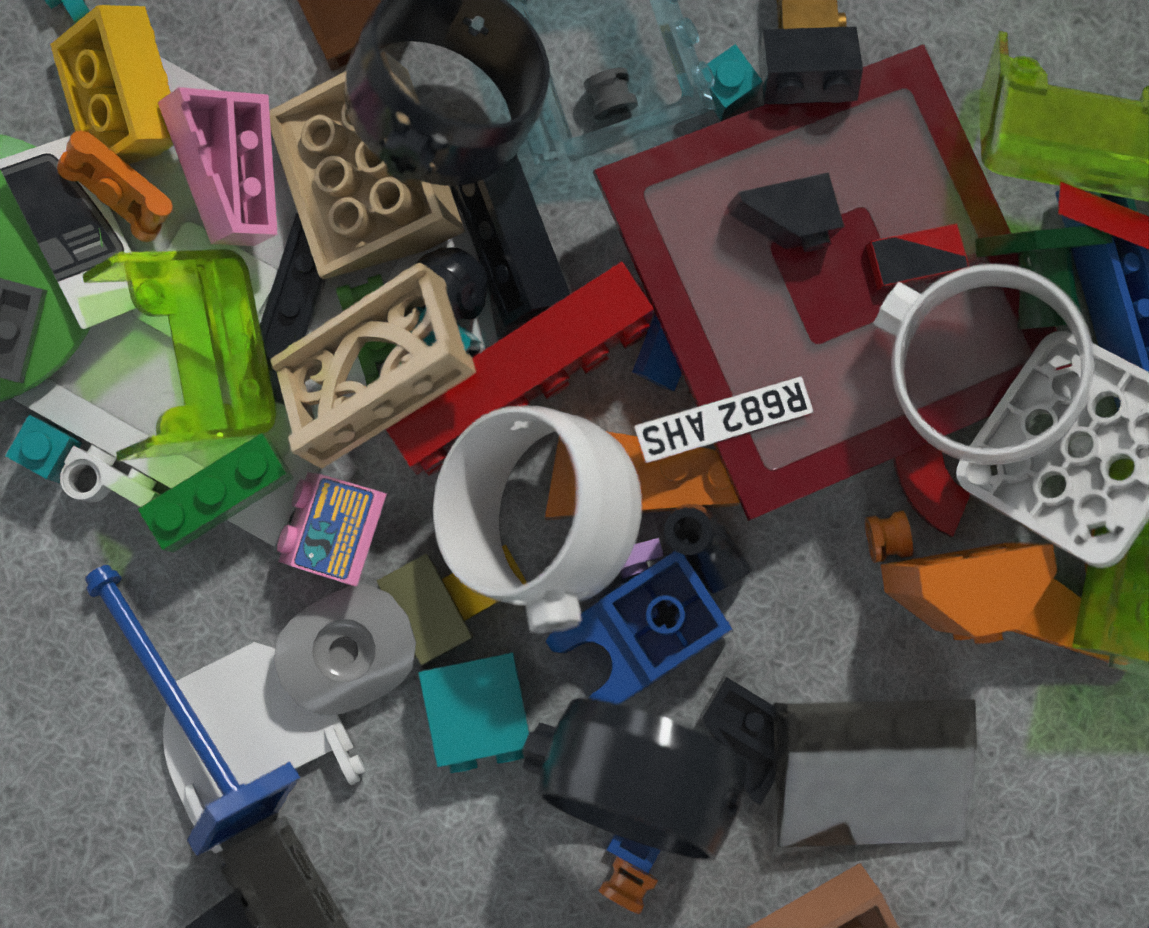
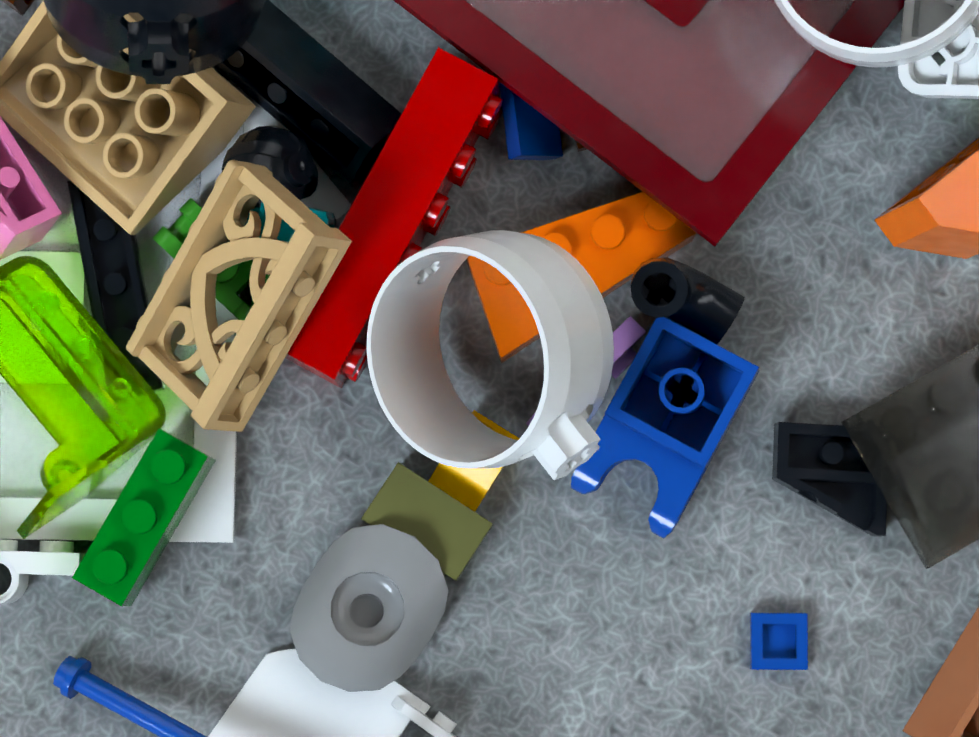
camera: 20 degrees left, 0 degrees up
(330, 527) = (284, 489): slope -> none
(475, 712) = (539, 599): teal piece -> none
(625, 889) = (794, 699): orange wheel -> none
(638, 777) = (746, 571): black cylinder -> none
(723, 419) = (632, 155): white sticker -> none
(889, 536) = (867, 186): orange wheel -> none
(931, 488) = (883, 114): red tile -> none

